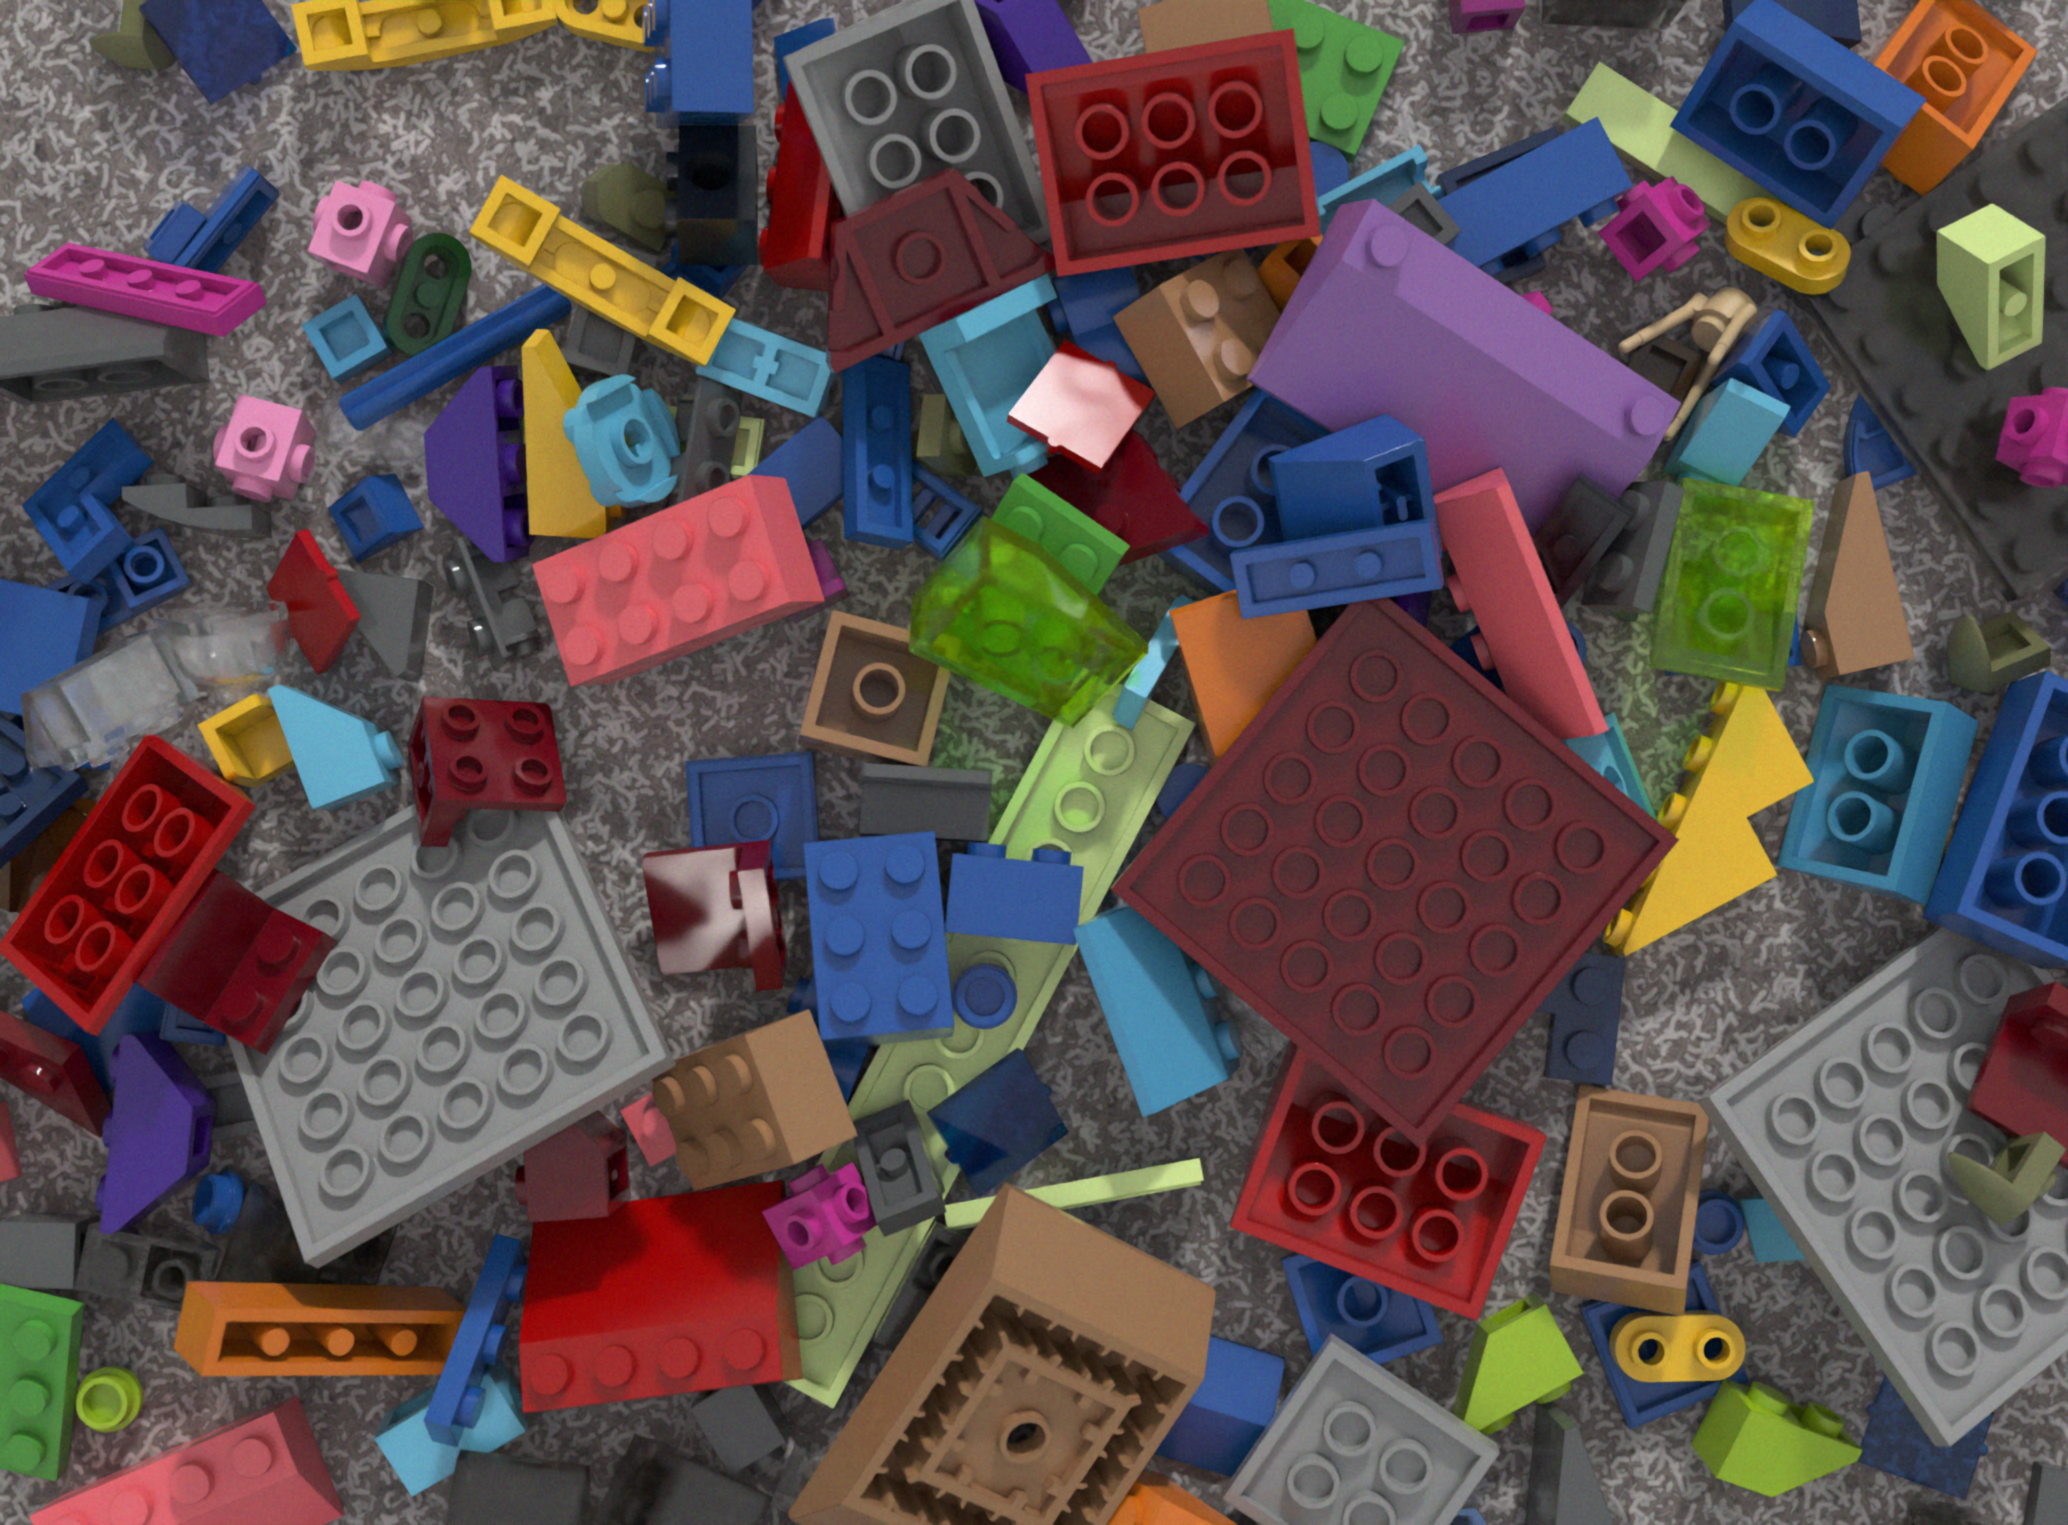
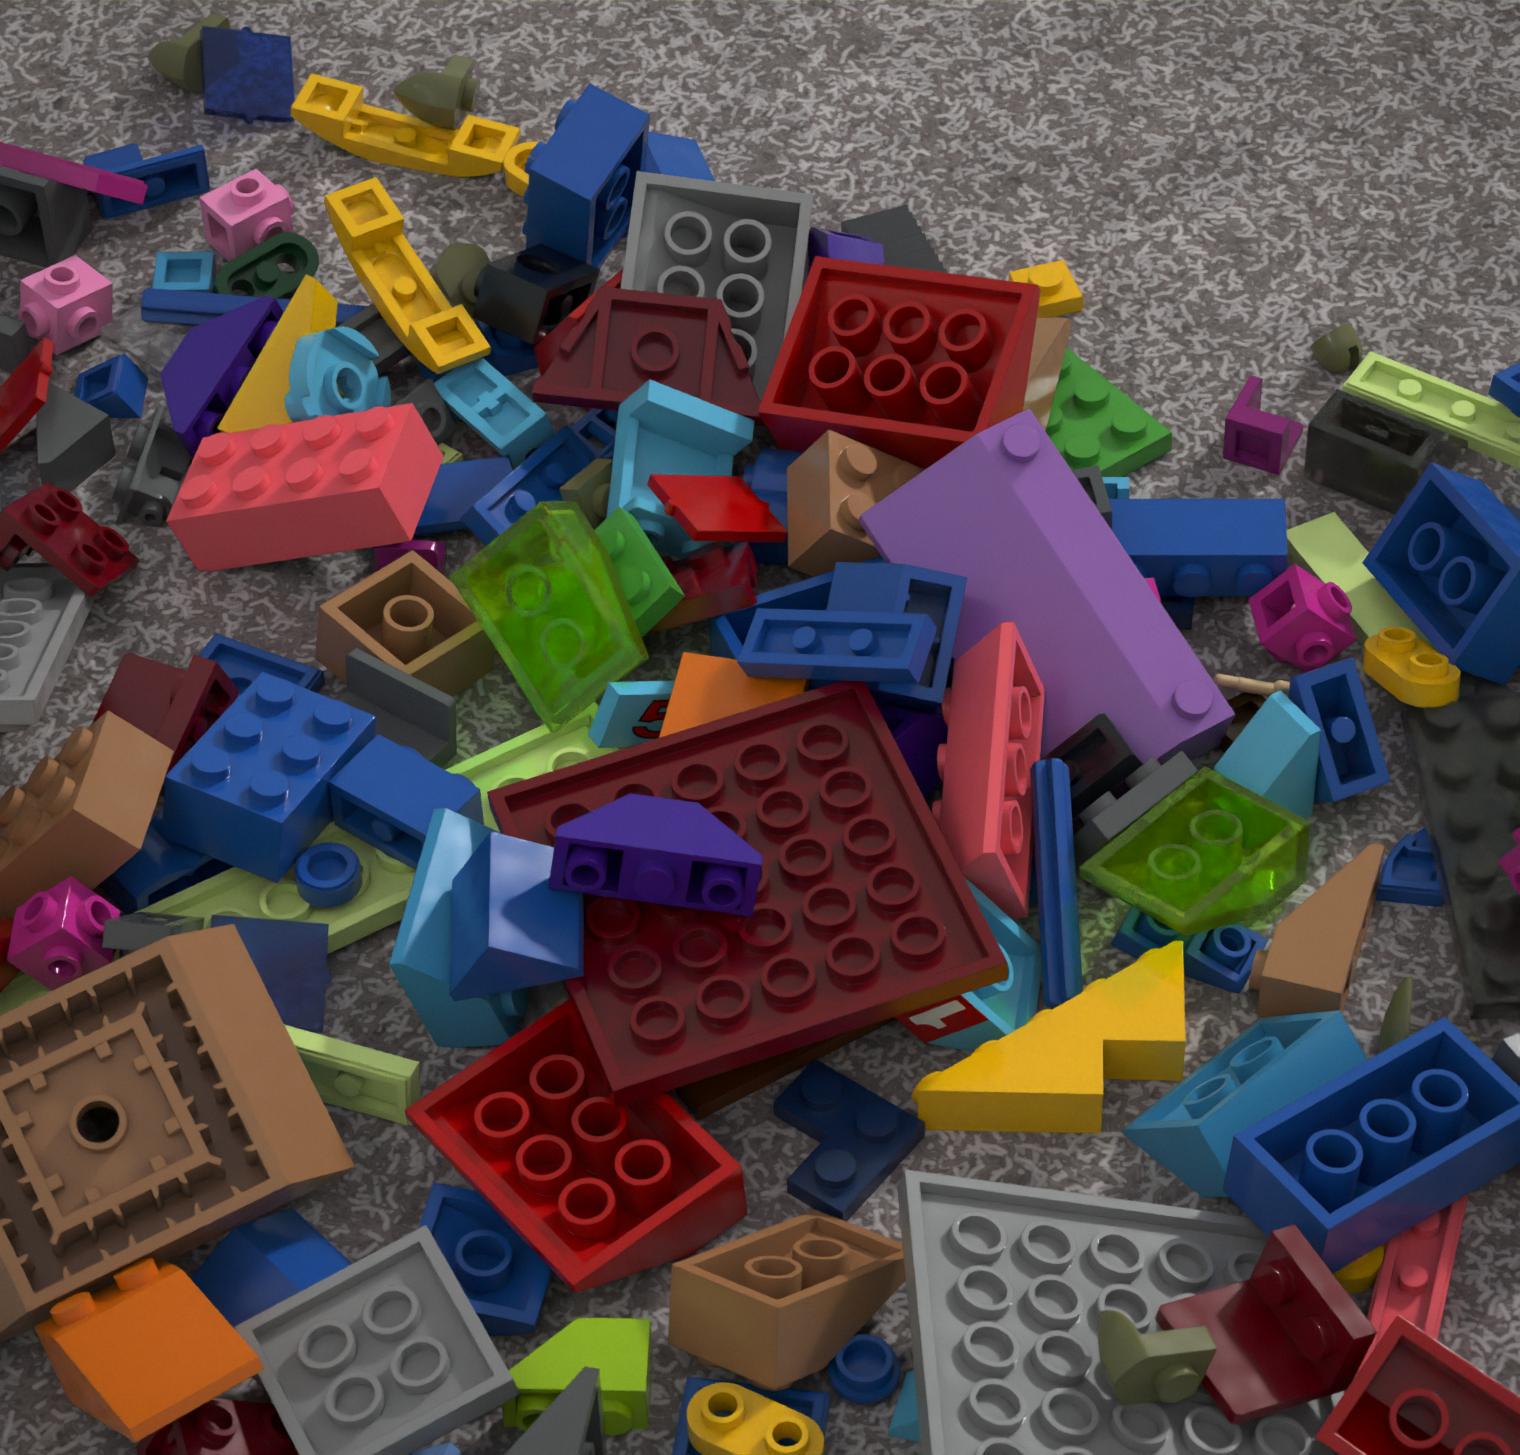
camera: 30 degrees right, 40 degrees down
(1233, 1026) = (509, 923): none -> blue slope
(1336, 916) = (657, 855): none -> dark purple slope
(1612, 663) = (1056, 881): none -> blue axle

